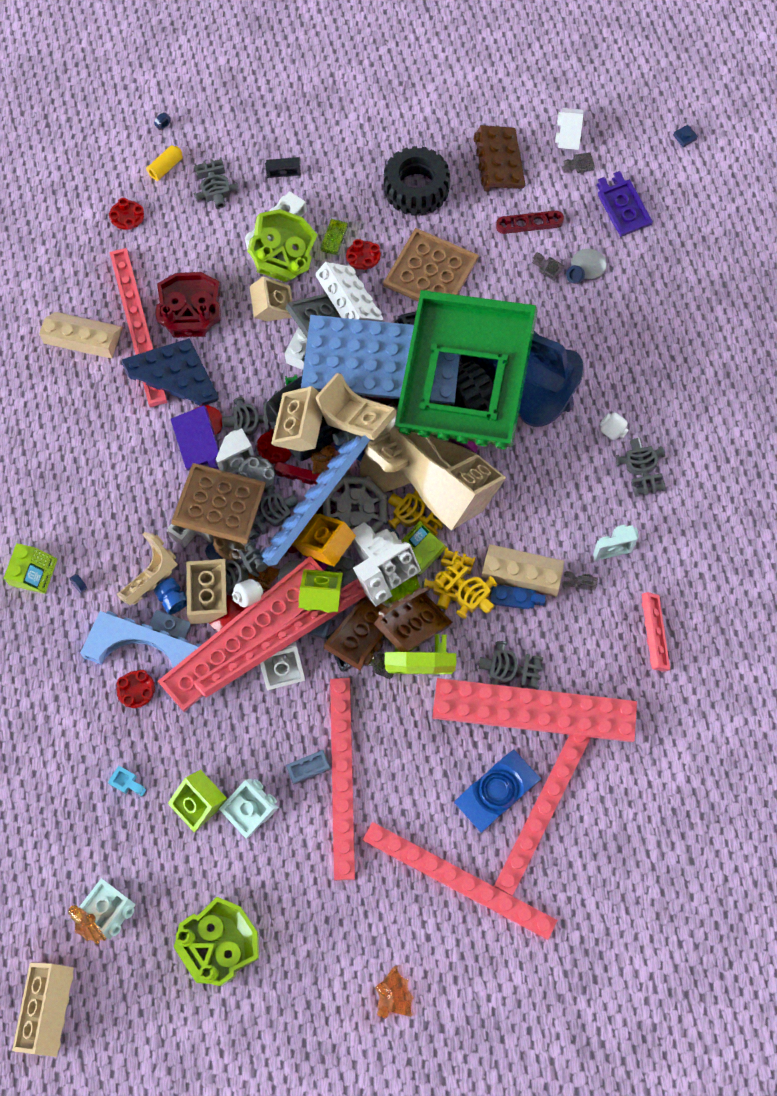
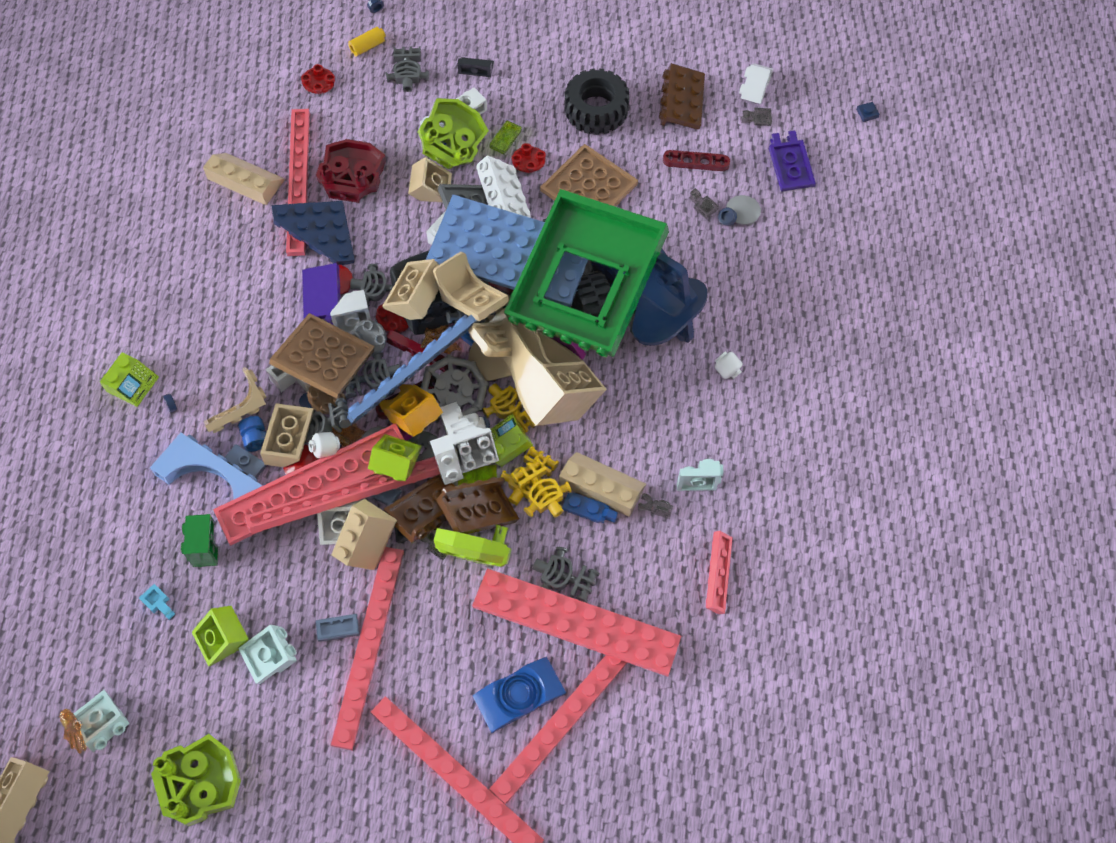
camera: 10 degrees right, 5 degrees down
(135, 689) = (192, 506): red dish -> none
(154, 719) = (199, 541): none -> green brick
(311, 673) = (364, 536): none -> tan slope
(637, 465) = (742, 405): dark grey piece -> none

